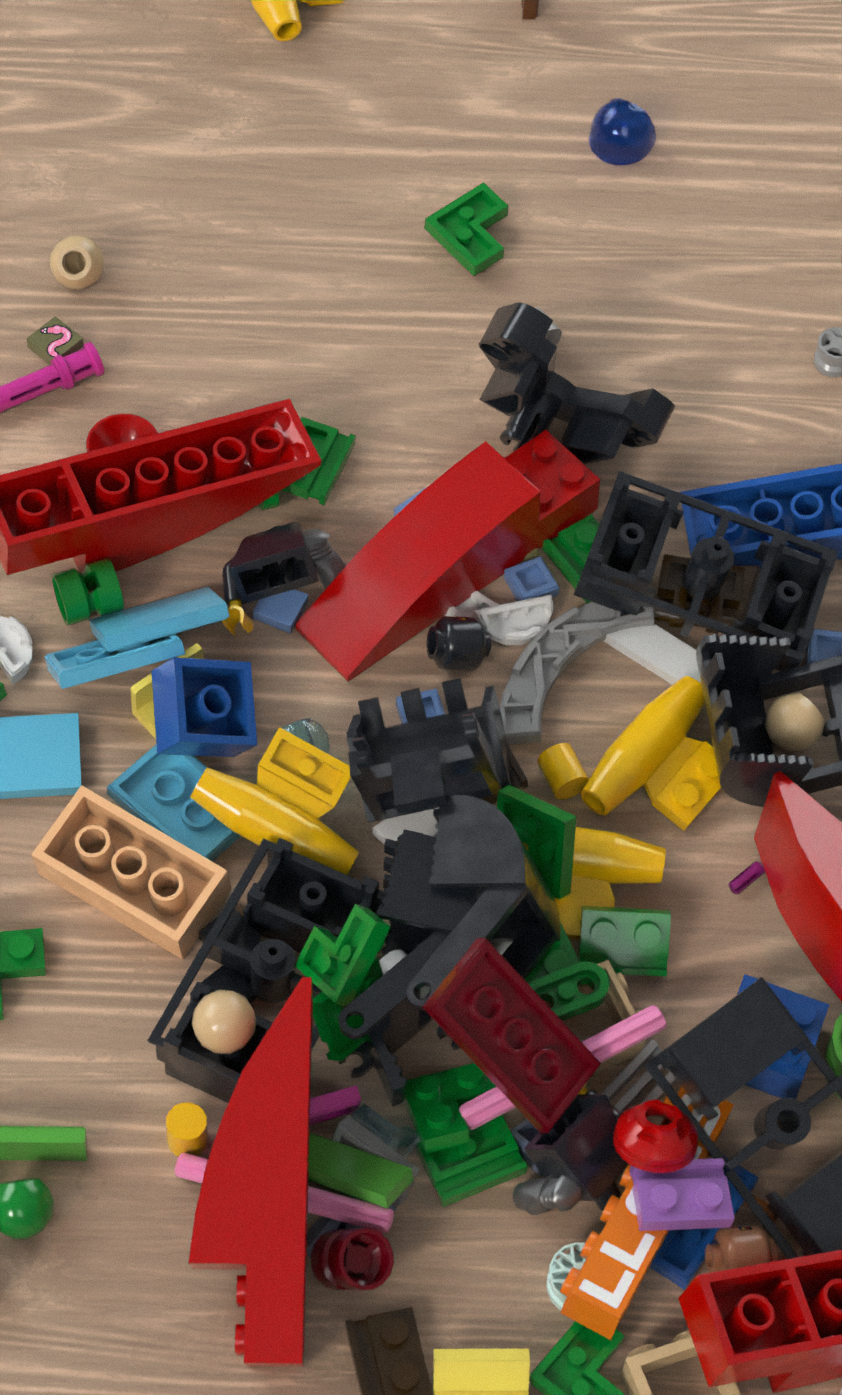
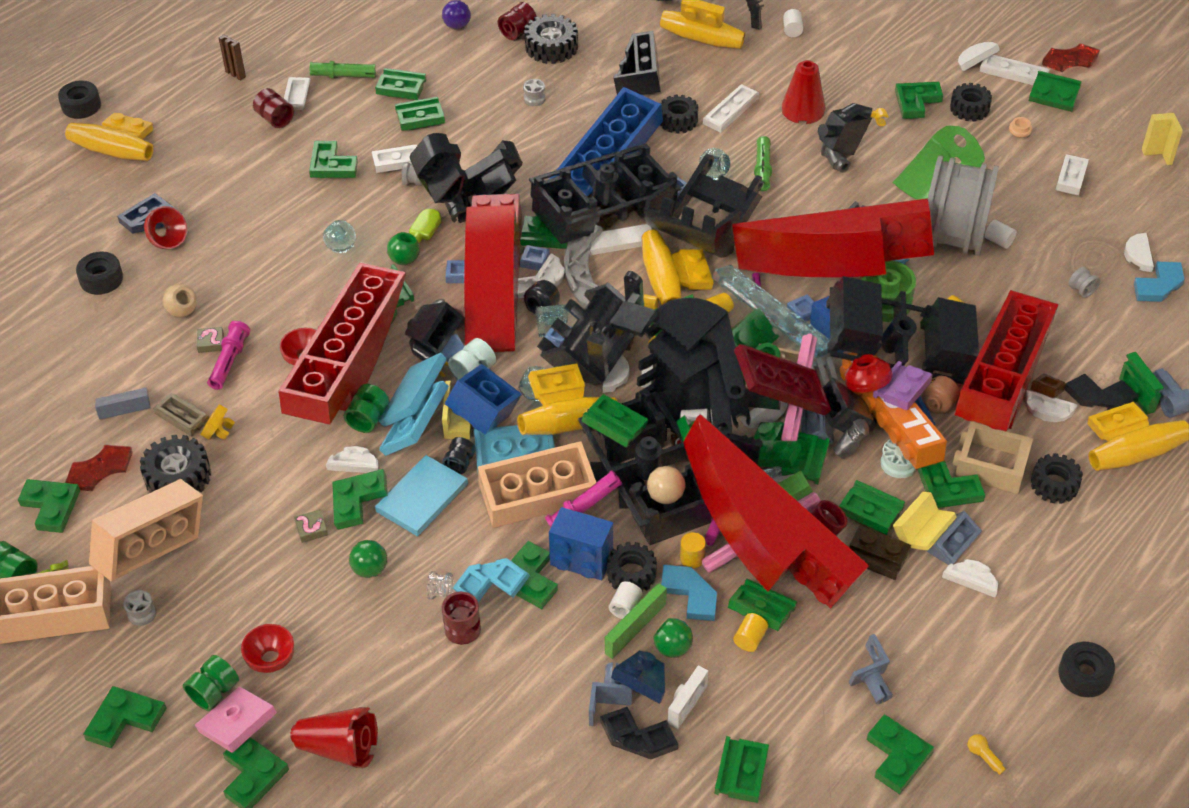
camera: 45 degrees left, 10 degrees down
(41, 1107) = (625, 599): none -> white piece
(48, 165) = (95, 263): none -> black tyre
(69, 993) = (580, 543): none -> blue brick
(91, 1055) = (632, 555): none -> black tyre
(106, 750) = (459, 454): none -> black wheel
(113, 1293) = (750, 632): none -> yellow piece
(123, 944) = (590, 496): none -> dark pink pin
(128, 1193) = (687, 581): none -> dark azure tile
(166, 1282) = (757, 600): none -> green plate
(175, 172) = (175, 227): none -> red piece
(189, 117) = (134, 217): none -> wing
(271, 646) = (471, 356): none -> light aqua wheel
(278, 884) = (614, 420): none -> green plate
(342, 963) = (686, 408): green plate -> none
(343, 341) = (339, 236): none -> clear light blue piece
(389, 425) = (403, 248): none -> green piece
(421, 670) = (548, 315): none -> clear light blue tile
(456, 1300) = (872, 507): none -> green plate
(459, 419) = (426, 224): none -> lime piece
(494, 94) = (273, 108): none -> dark red wheel
(548, 291) = (392, 158): none -> white plate
(556, 94) = (297, 92): none -> white tile
(621, 133) = (342, 84): clear blue helmet -> none
(657, 255) = (419, 113): none -> green plate
(665, 124) = (342, 69): none -> bright green pin
(690, 192) = (400, 84): none -> green plate
(703, 923) = (774, 310): none -> clear light blue plate
(752, 963) = (802, 307): none -> medium blue tile
(794, 723) = (702, 208): tan piece -> none

